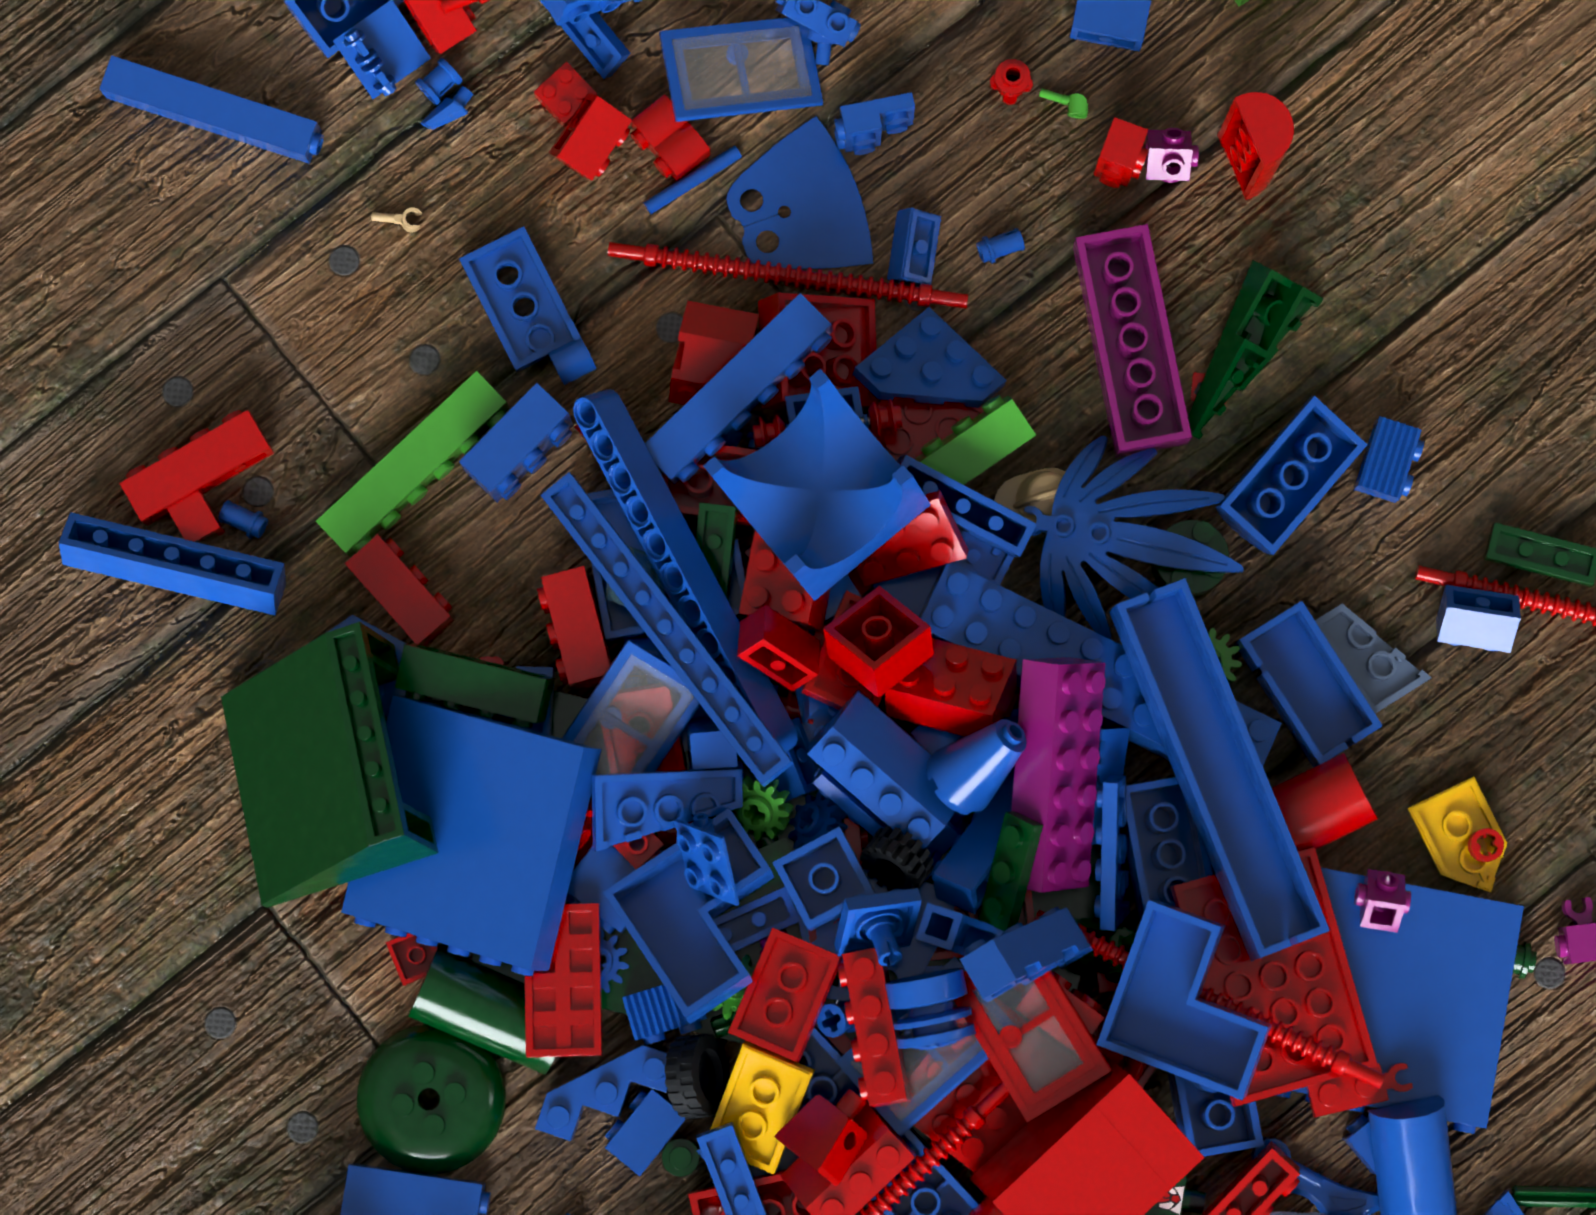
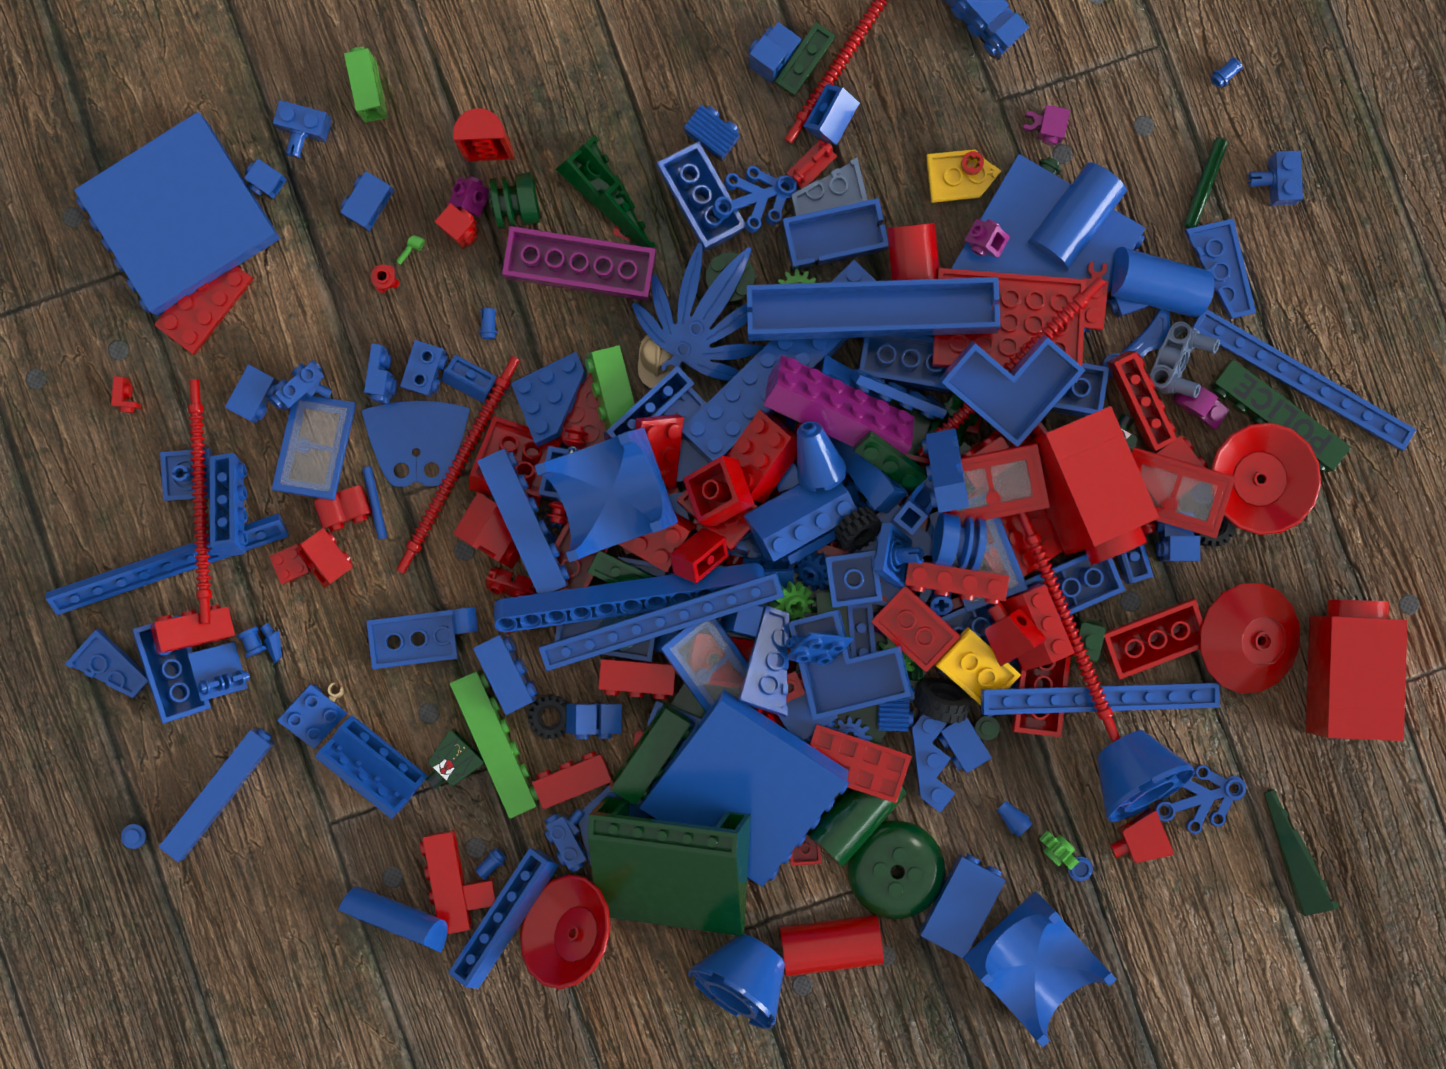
camera: 75 degrees left, 5 degrees up
(114, 18) = (133, 836): none -> blue plate
(122, 412) = (395, 918): none -> blue brick
(182, 654) = (565, 932): none -> red dish
(200, 929) = (743, 979): none -> blue cone
(290, 1043) = (832, 945): none -> red brick
(320, 606) = (564, 835): none -> blue brick
(322, 306) = (371, 766): none -> blue brick
(364, 199) = (312, 716): none -> blue hinge
(370, 415) = (453, 760): none -> dark green torso
(473, 507) = (535, 720): none -> black tyre
(496, 589) = (593, 718): none -> blue piece
(643, 391) = (500, 583): none -> red hinge
(904, 180) = (424, 368): none -> blue brick
(1184, 214) = (514, 200): none -> dark green wheel
(1321, 554) = (756, 195): none -> blue plant
(1397, 617) = (812, 164): none -> red hinge
(1467, 1023) = (1078, 214): none -> blue brick
(1536, 503) = (773, 51): none -> blue brick

